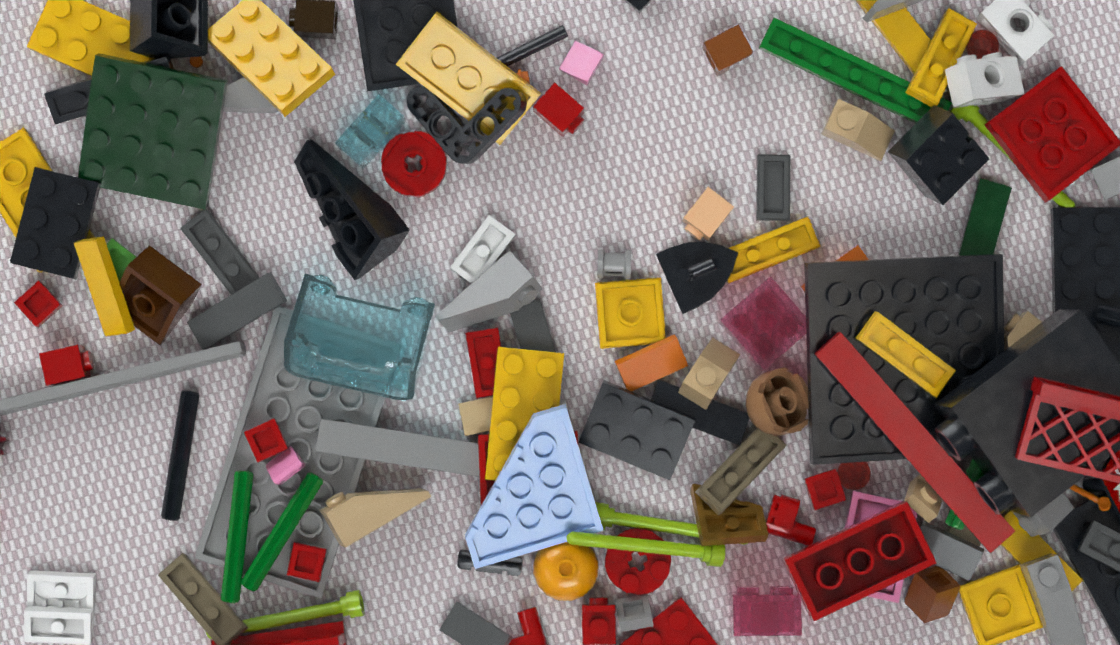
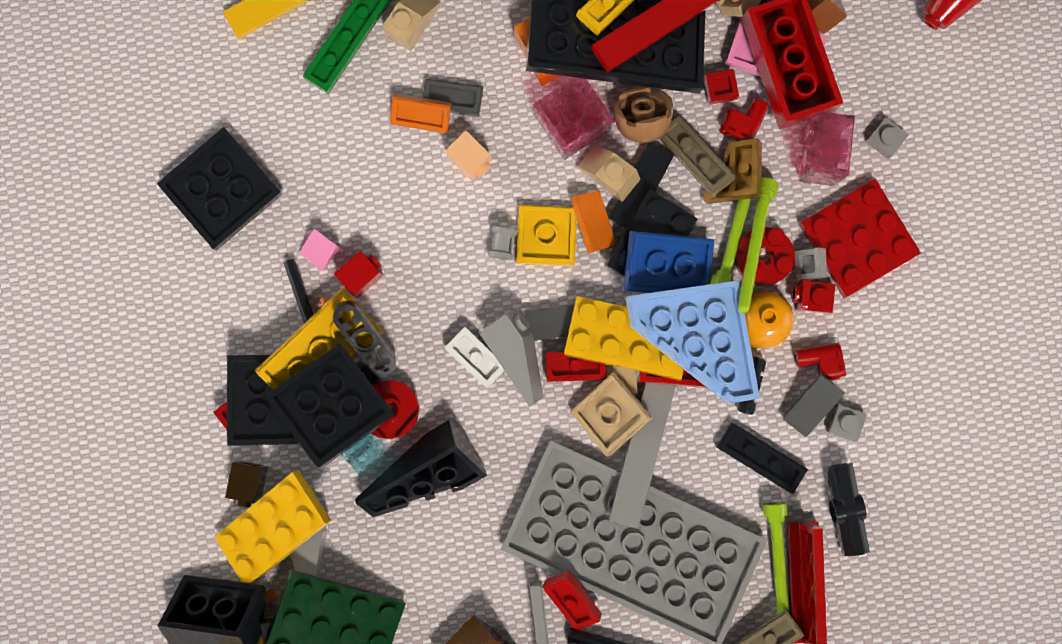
camera: 90 degrees left, 0 degrees up
(219, 252) = (450, 591): dark grey tile -> none
(229, 389) = (572, 600): none -> red plate
(237, 311) = (501, 585): dark grey tile -> none
(237, 536) = (705, 609): green axle -> none
(266, 440) = (622, 572): red plate -> none
(282, 531) = (706, 568): green axle -> none
(284, 466) = (647, 558): bright pink slope -> none
(307, 562) = (735, 548): red tile -> none
(357, 341) = (542, 479): clear light blue windscreen -> none
(361, 513) = (696, 489): tan slope -> none
(407, 98) = (329, 406): none -> black plate
(410, 583) = (761, 458): none -> black tile
(438, 408) = (611, 414): none -> tan tile
(614, 450) = (666, 262): none -> blue tile
(696, 271) = (517, 172): black shield -> none
(727, 49) = (325, 120): dark orange panel -> none
(749, 154) = (420, 113): none -> orange tile
(773, 248) = (506, 109): yellow tile -> none
(854, 475) = (713, 59): clear red plate -> none

